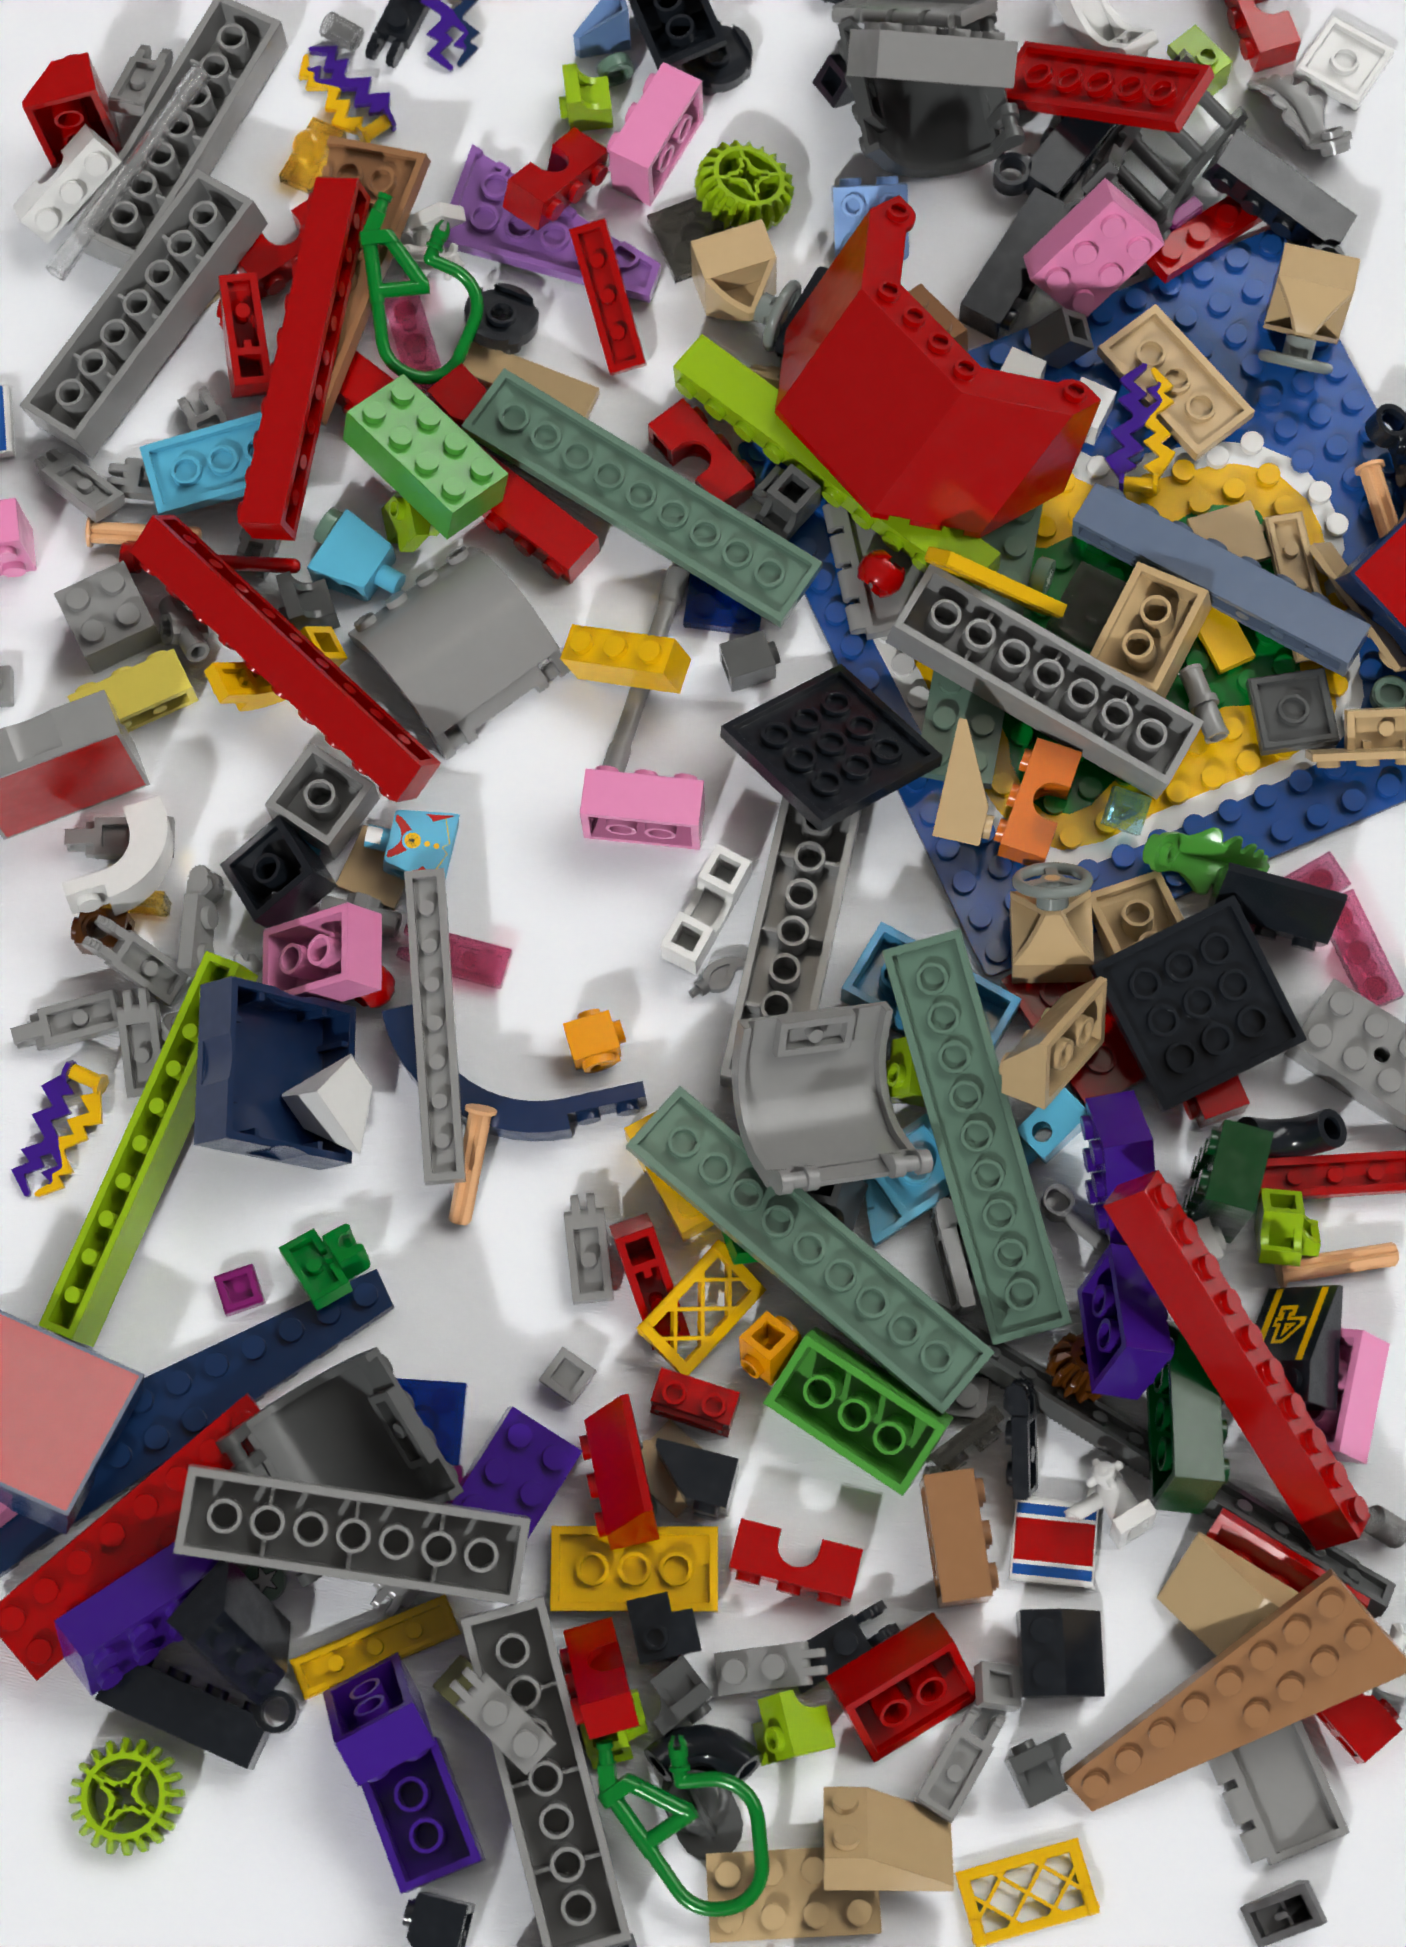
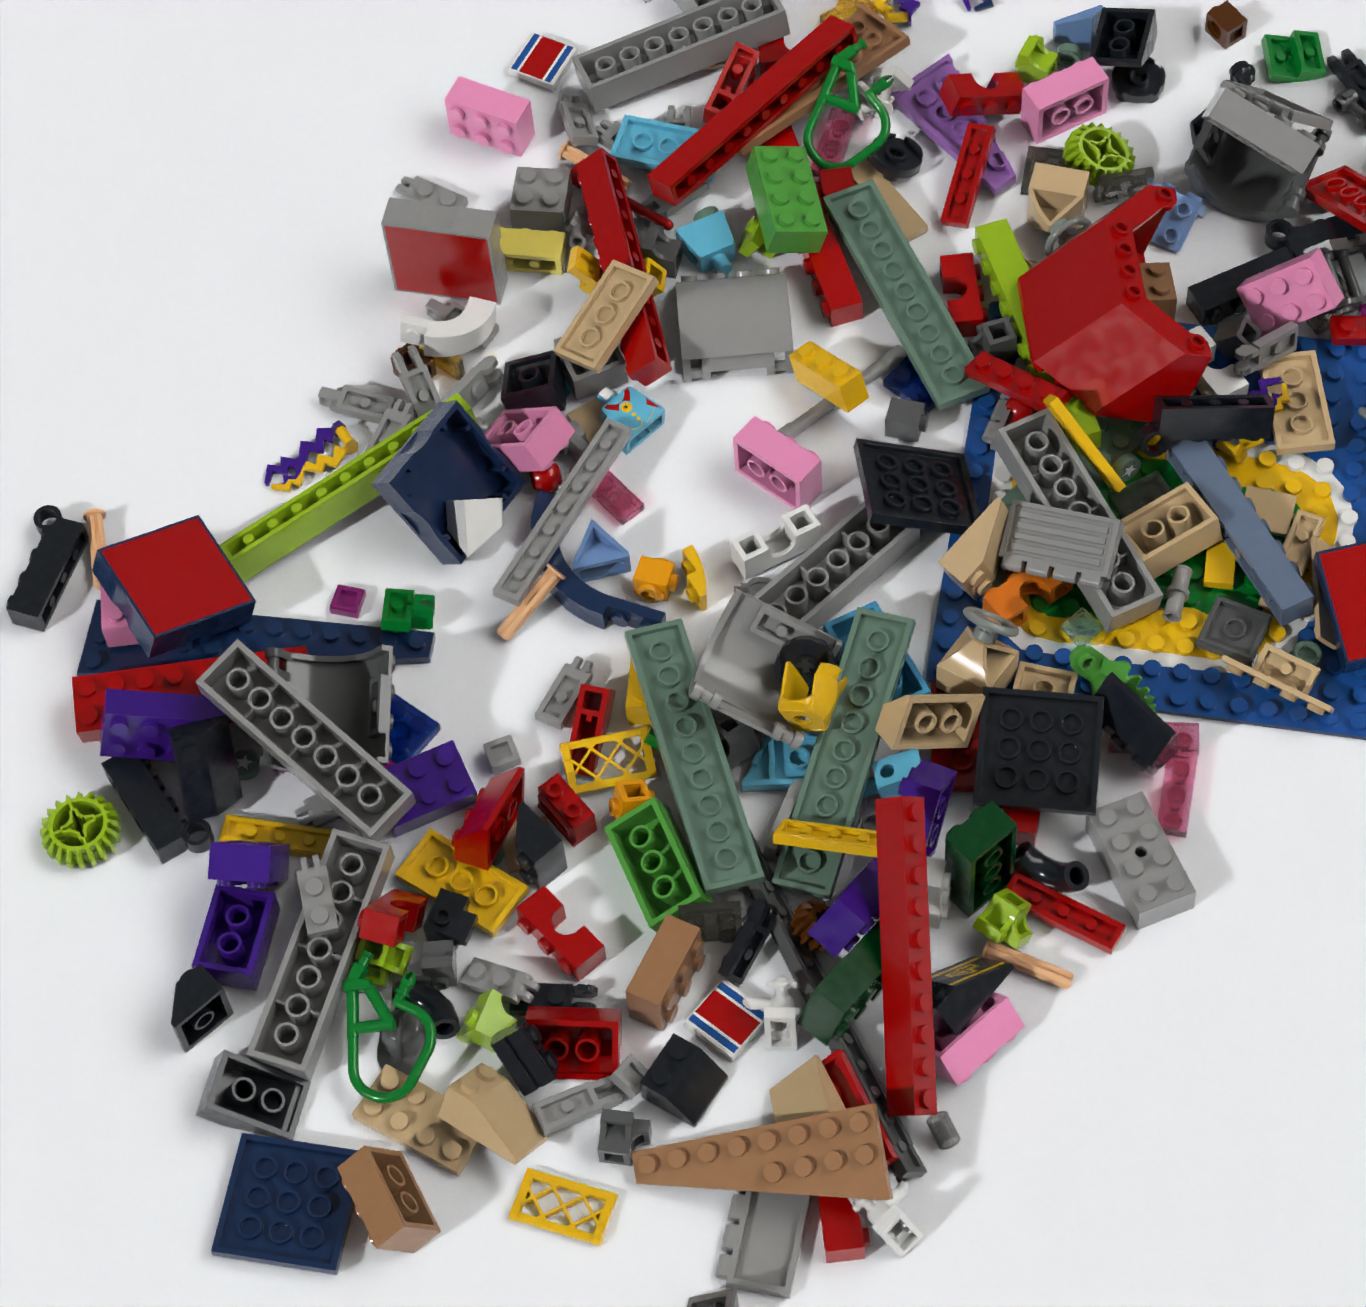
camera: 35 degrees right, 15 degrees down
(319, 742) = (605, 316): none -> tan plate
(511, 1051) = (600, 555): none -> medium blue slope
(648, 1019) = (695, 575): none -> yellow slope
(806, 207) = (1120, 185): none -> clear smoke plate
(855, 1041) = (801, 648): none -> black plate
(860, 546) = (1013, 381): none -> red plate
(871, 1748) = (525, 1056): none -> black brick
(931, 1096) = (818, 706): none -> yellow piece
(1043, 1257) = (826, 837): none -> yellow tile
(1053, 725) = (1060, 540): none -> light grey hinge
(1109, 341) = (1266, 349): none -> light grey hinge
(1111, 470) = (1207, 418): none -> black hinge

